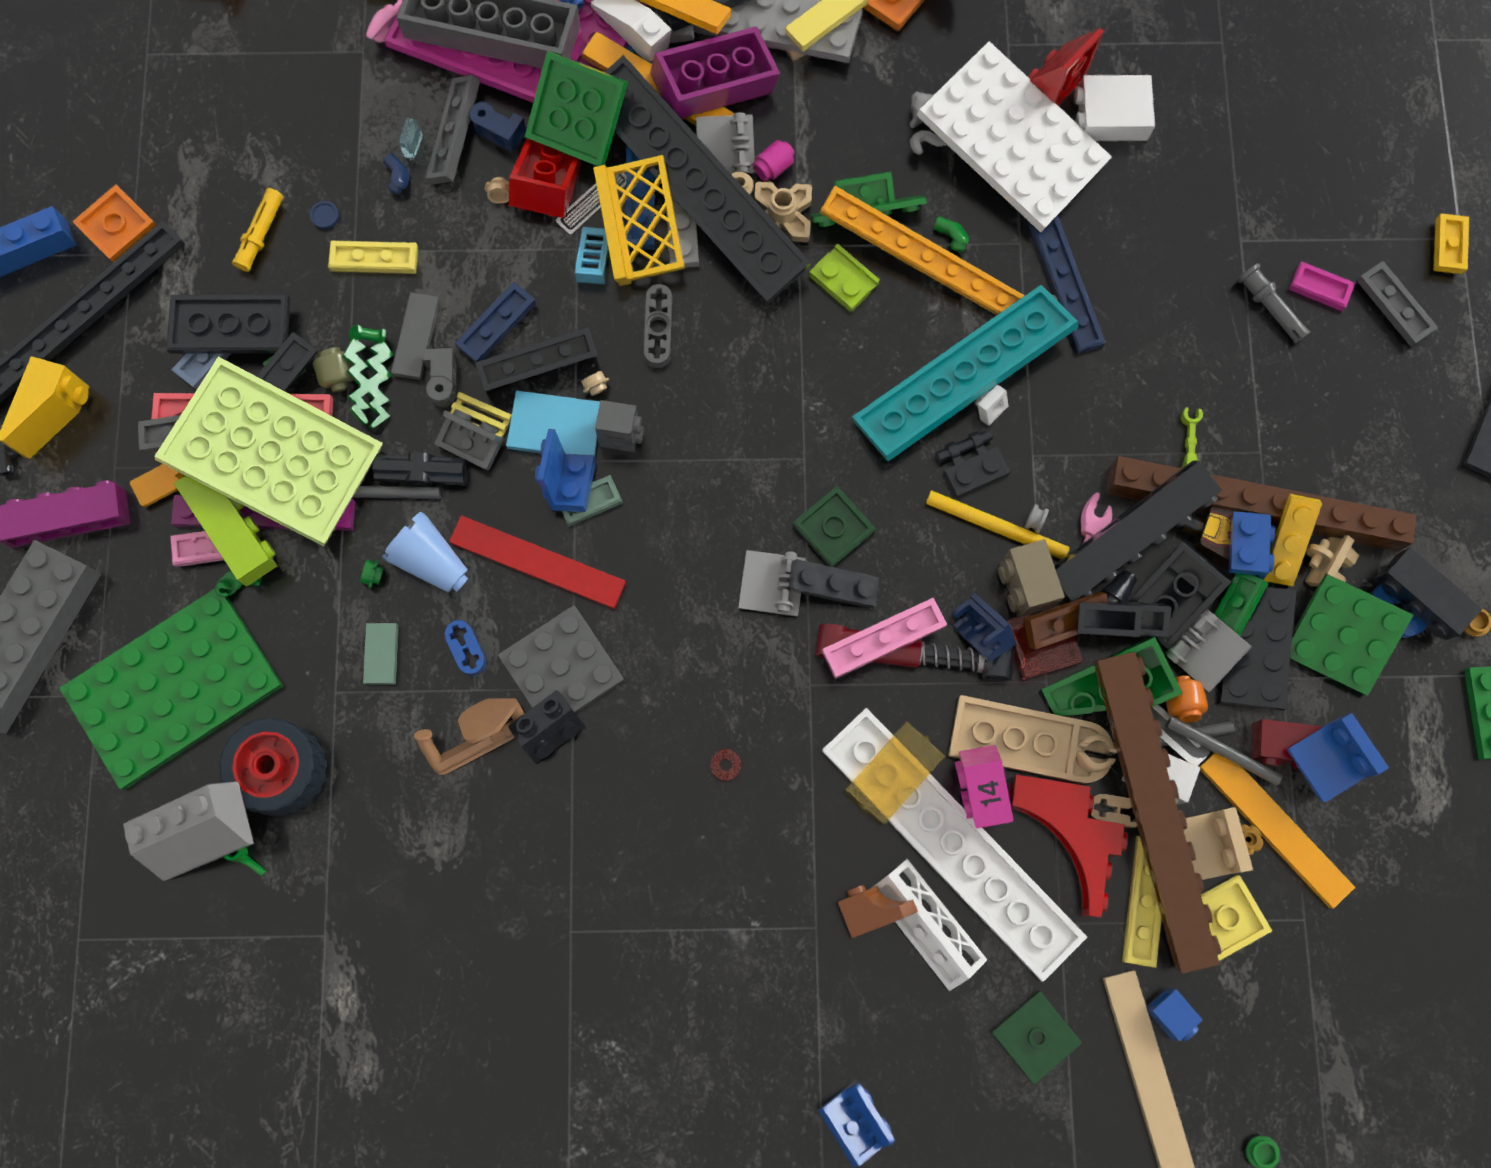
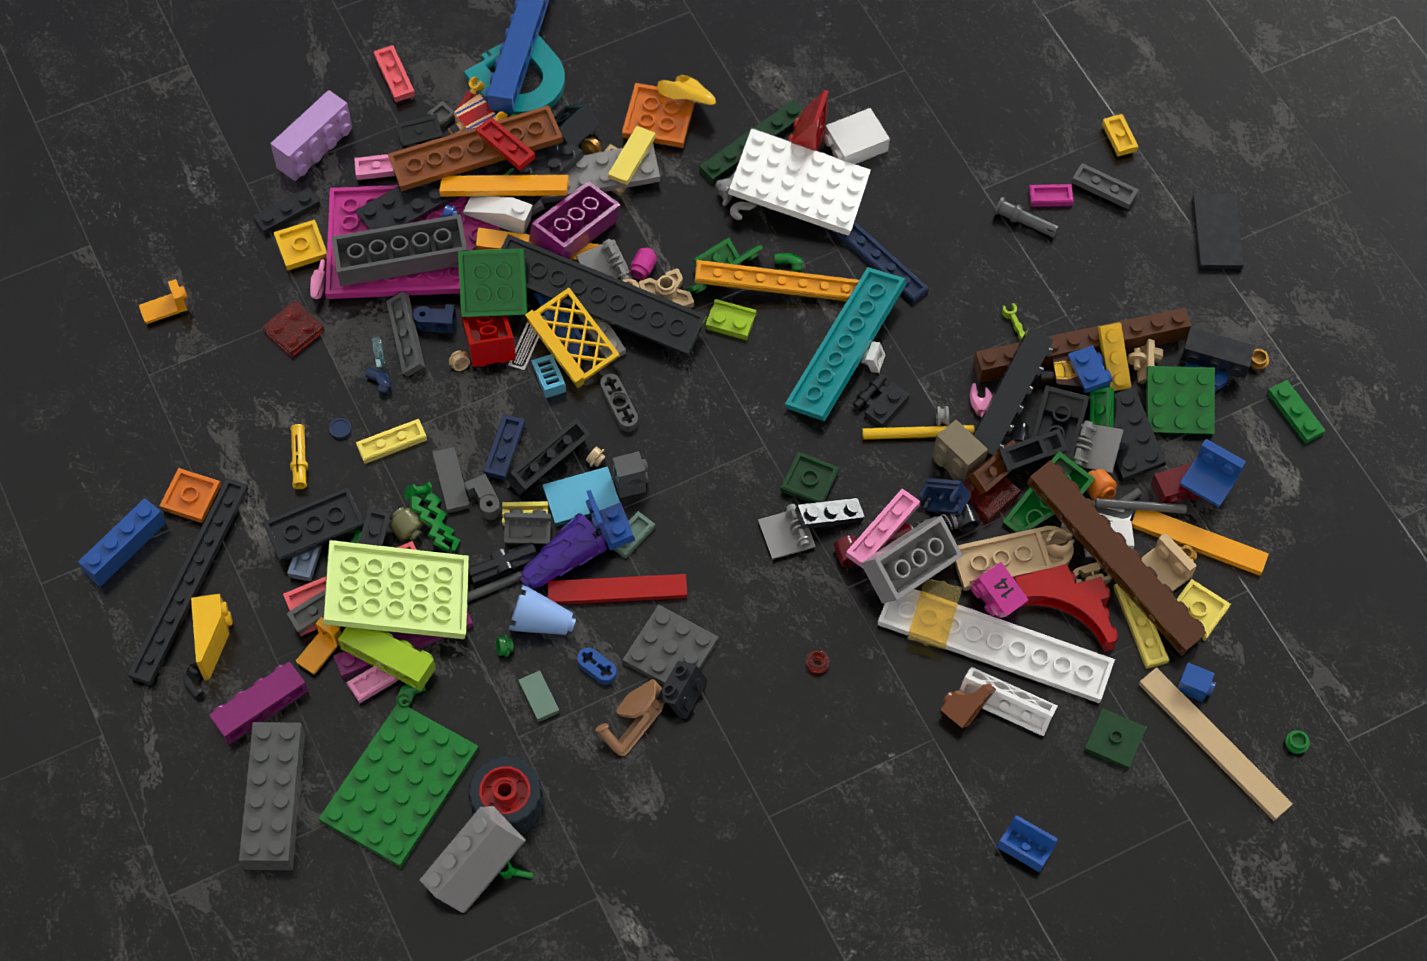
camera: 25 degrees left, 15 degrees down
(332, 67) = (293, 328): none -> clear red plate
(503, 488) = (571, 547): none -> dark purple cone
(898, 696) = (911, 559): none -> light grey brick
(1020, 50) = (729, 157): none -> dark green plate

